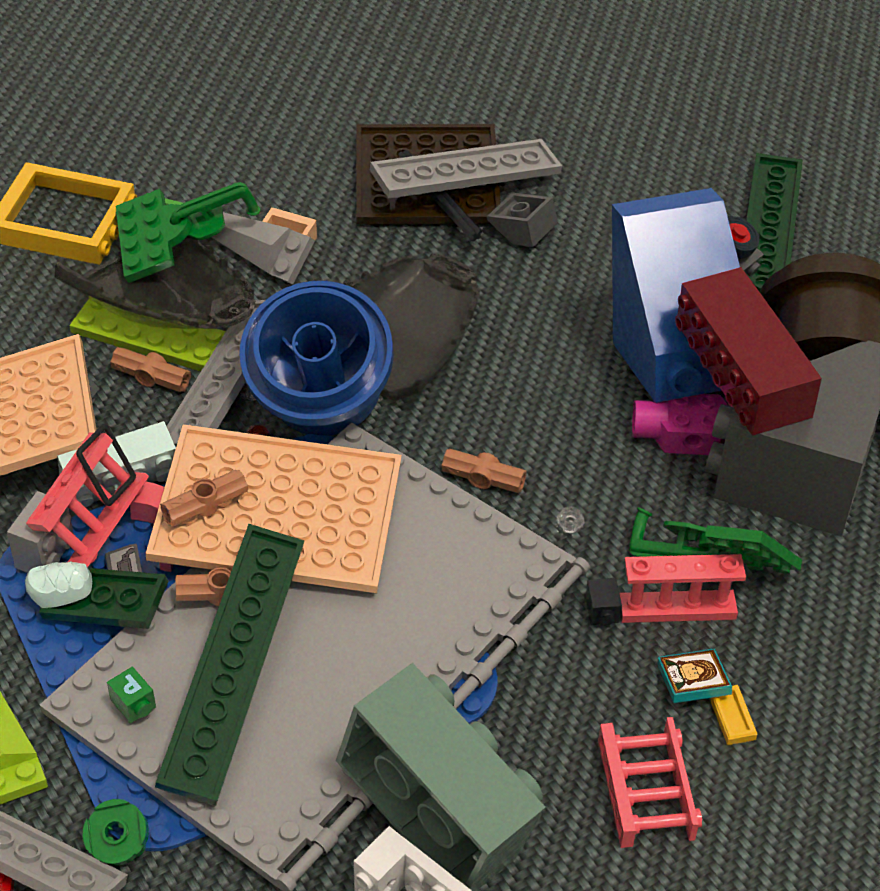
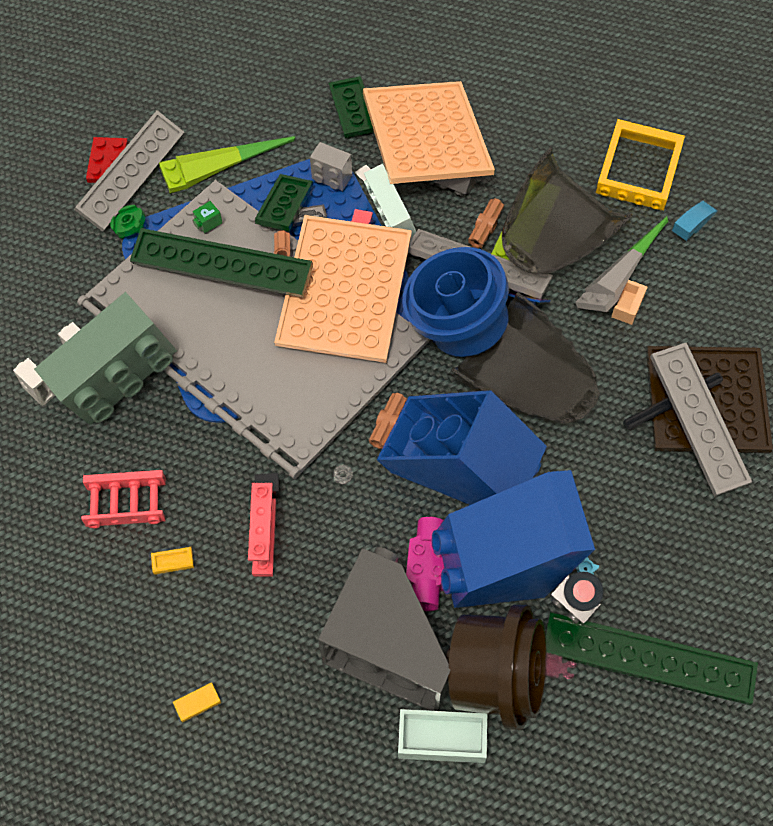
camera: 95 degrees right, 15 degrees up
(58, 583) = (293, 177): light aqua piece -> none
(63, 495) = (352, 167): coral fence -> none
(108, 502) = (343, 176): black piece -> none
(152, 228) = (611, 215): green plate -> none
(161, 168) = (693, 220): none -> dark azure slope
(204, 497) = (346, 247): nougat piece -> none
(524, 218) = (652, 462): dark grey slope -> none
(532, 379) = (462, 445): none -> blue slope
(694, 675) = (201, 537): tile -> none
(747, 351) = (420, 558): dark red brick -> none
(756, 546) = (283, 561): green plate -> none

